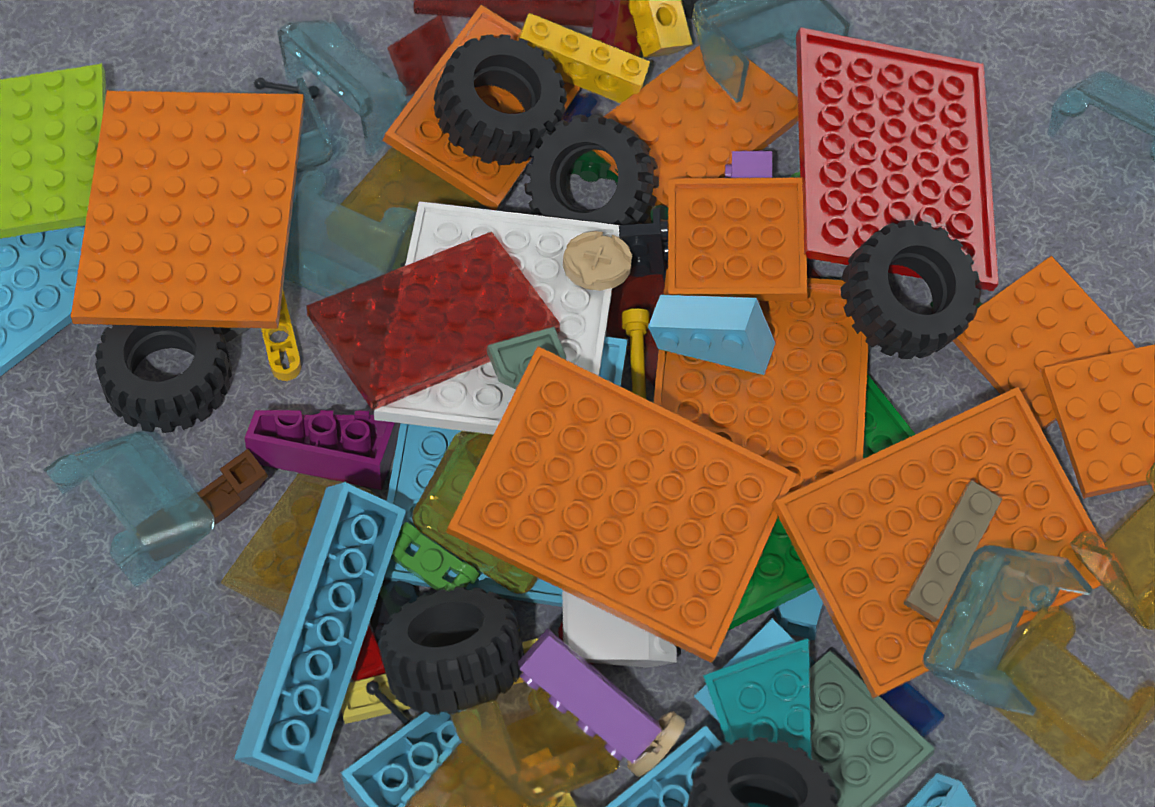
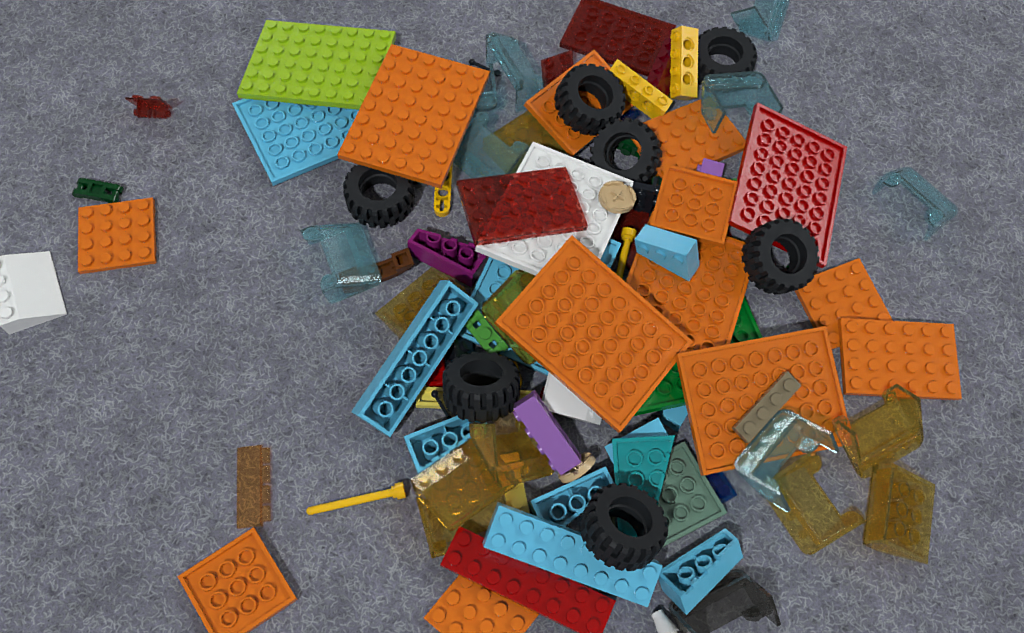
camera: 10 degrees right, 5 degrees up
(513, 355) = (557, 236): sand green plate -> none

